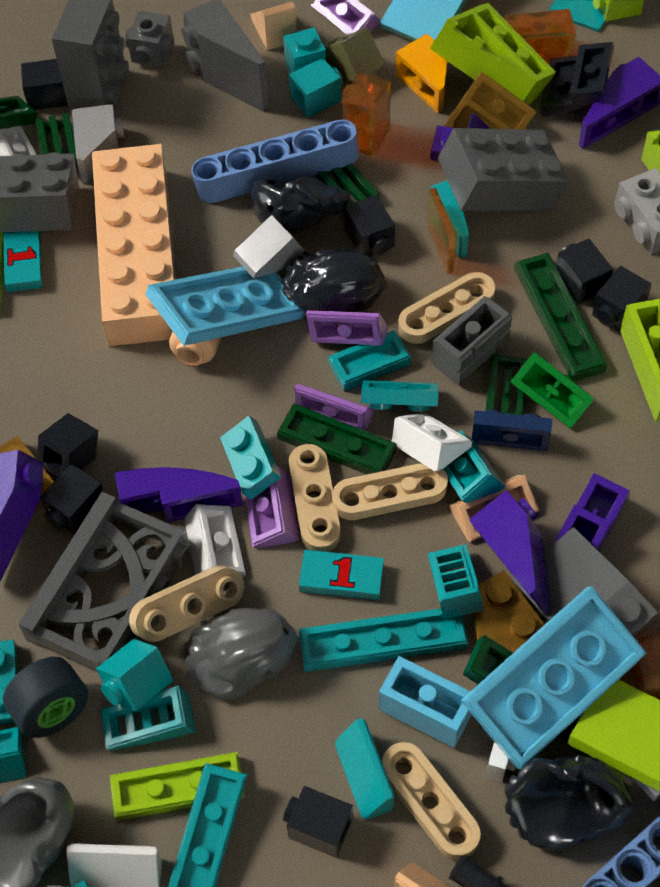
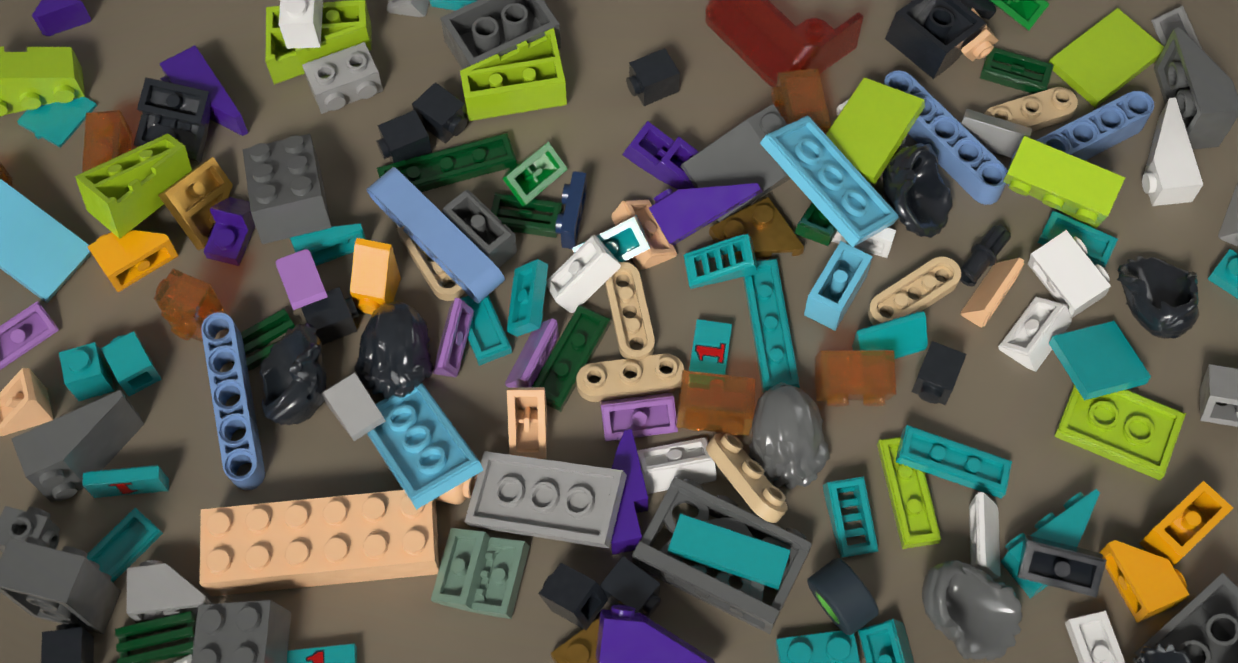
camera: 90 degrees left, 5 degrees up
(101, 585) = (729, 551): none -> teal tile
(103, 376) = (480, 573): none -> sand green slope
(134, 675) = (819, 519): teal brick -> none
(146, 110) = (124, 544): none -> teal tile
(165, 416) = (546, 499): none -> light grey plate
(200, 100) = (125, 481): none -> teal tile
(250, 457) = (590, 427): plate -> none
(255, 397) = (527, 422): none -> light nougat slope
(275, 570) = (716, 403): none -> clear orange brick
(308, 719) = (855, 376): none -> clear orange brick
(354, 54) = (93, 319): olive slope -> none
(399, 193) = (301, 279): none -> medium lavender slope
(408, 254) = (373, 275): none -> light orange slope
(441, 230) = (338, 249): clear orange piece -> none
(484, 274) = (436, 235): none -> medium blue beam

